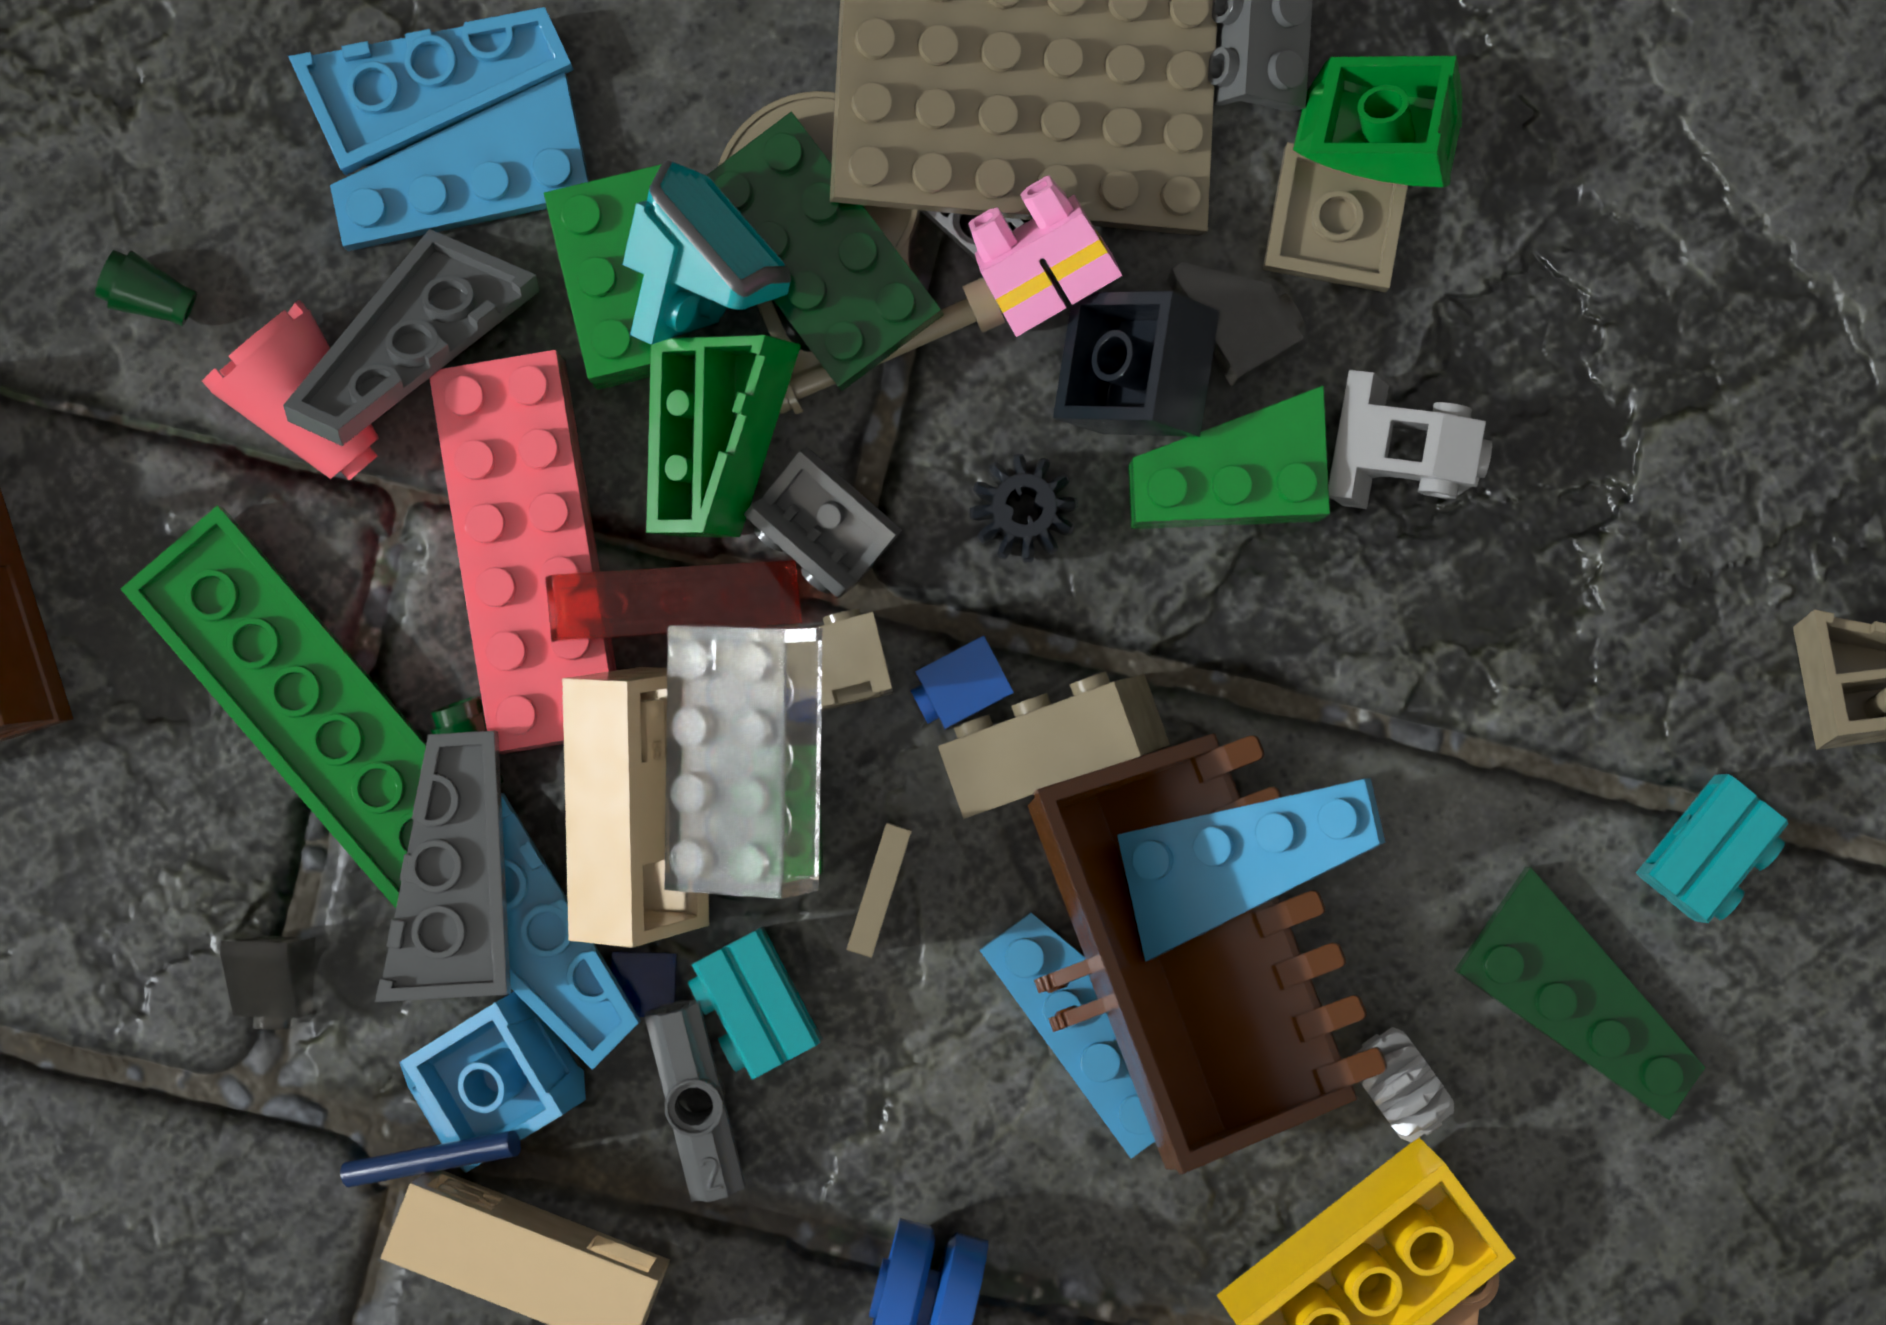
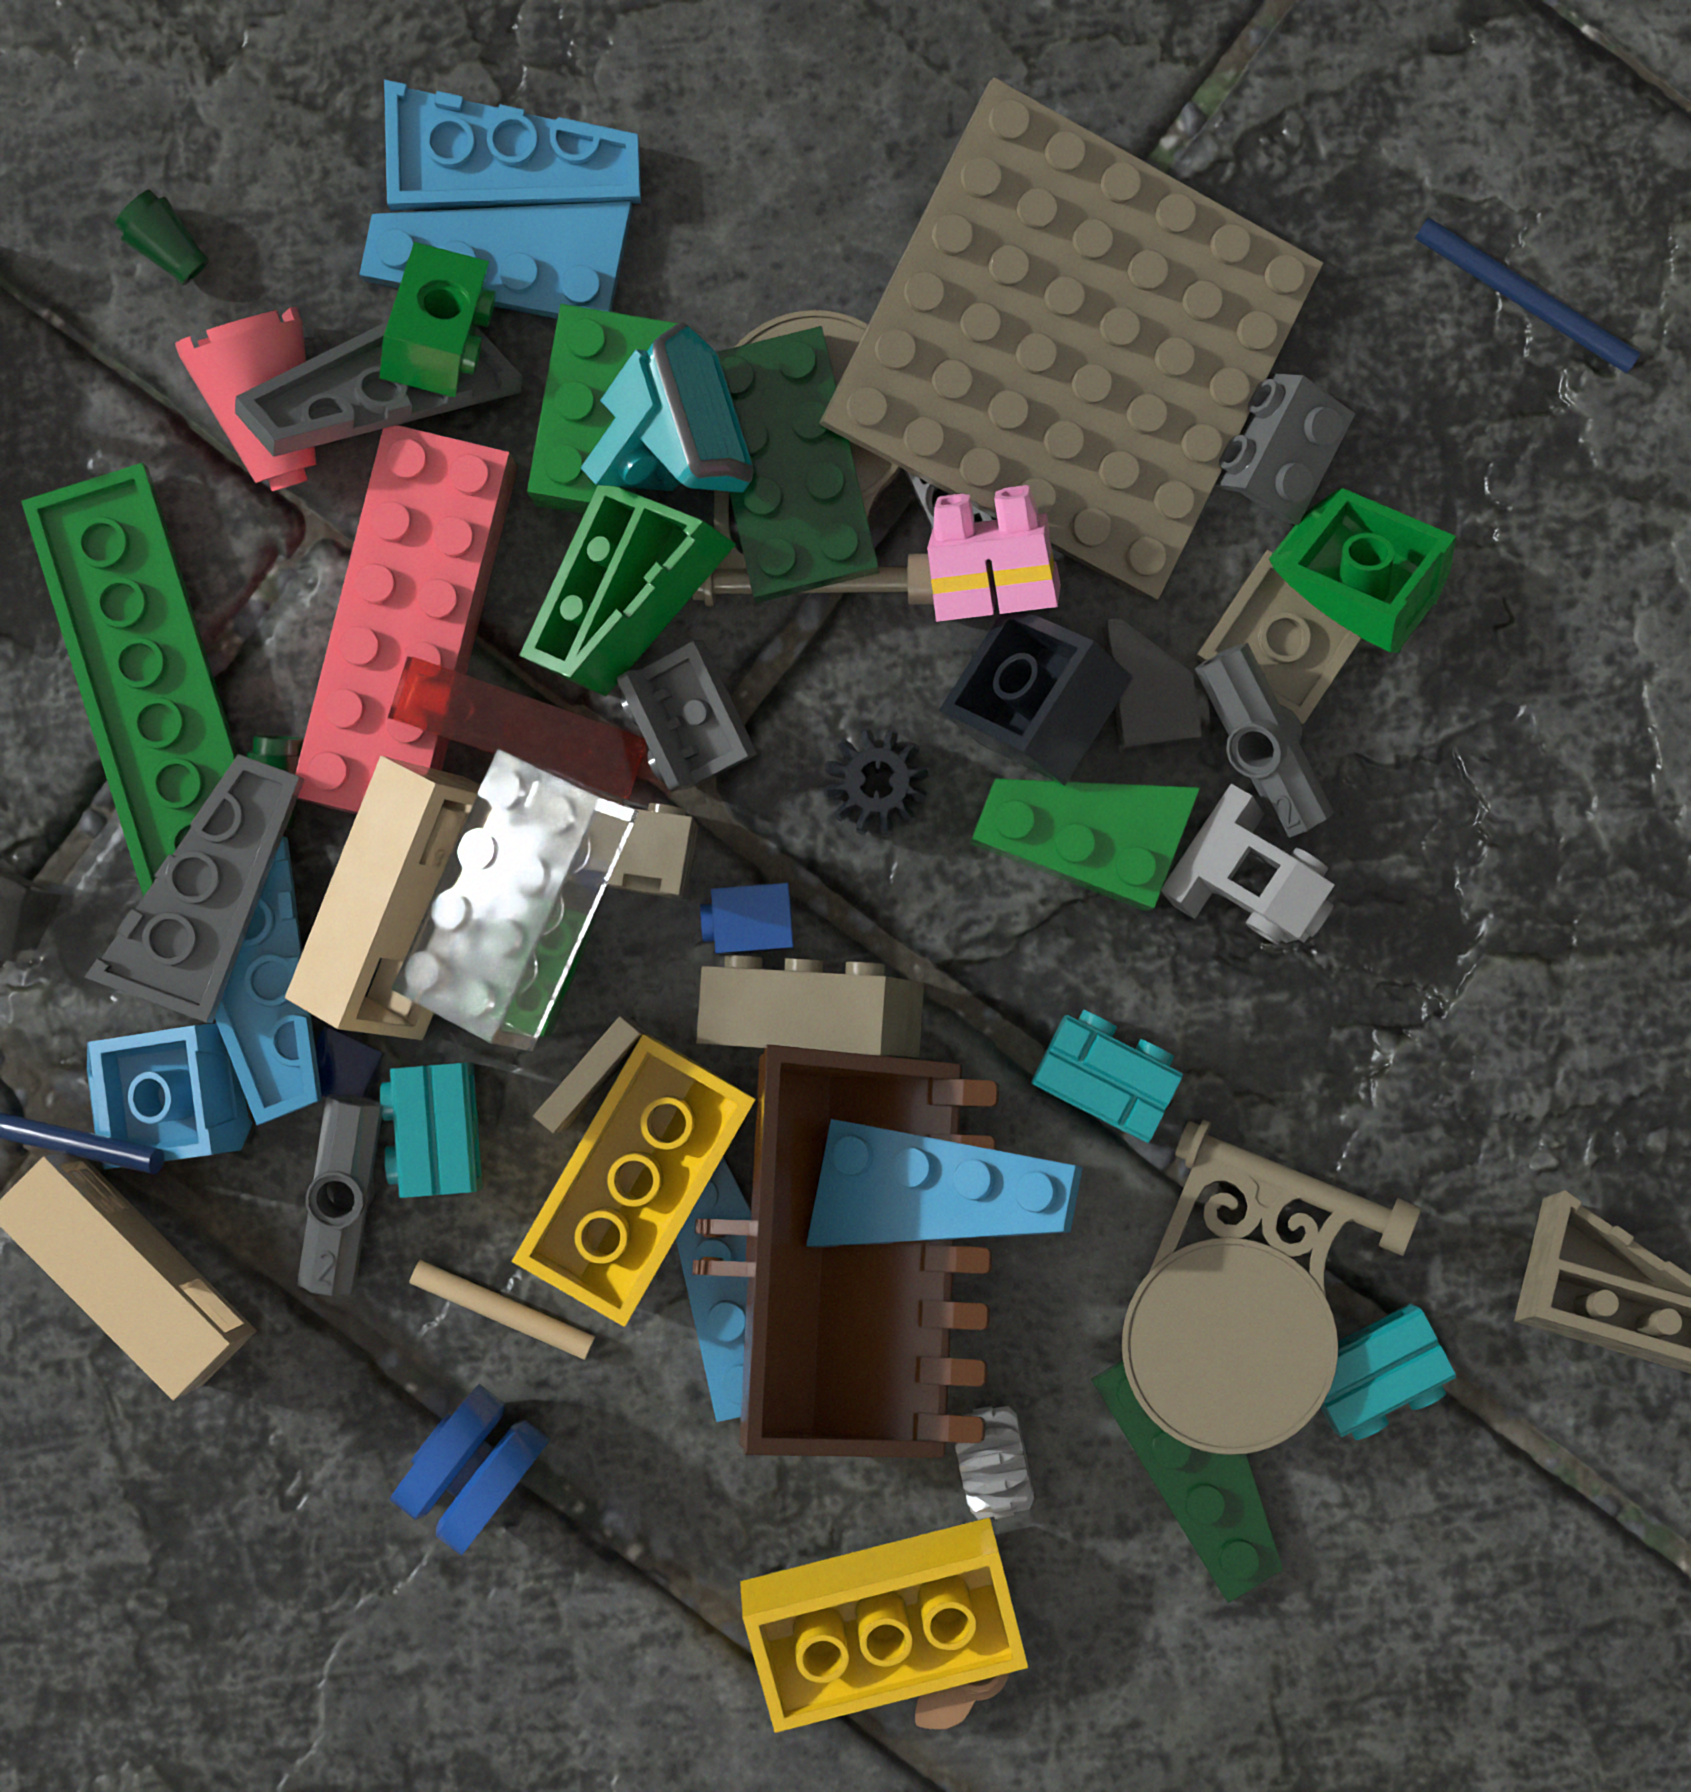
camera: 30 degrees right, 0 degrees up
(434, 256) = (435, 320): none -> green brick
(888, 1142) = (502, 1309): none -> tan bar
(962, 969) = (634, 1179): none -> yellow slope
(1351, 687) = (1107, 1076): none -> teal brick
(1389, 344) = (1279, 775): none -> dark grey piece
(1568, 871) = (1232, 1333): none -> dark tan piece

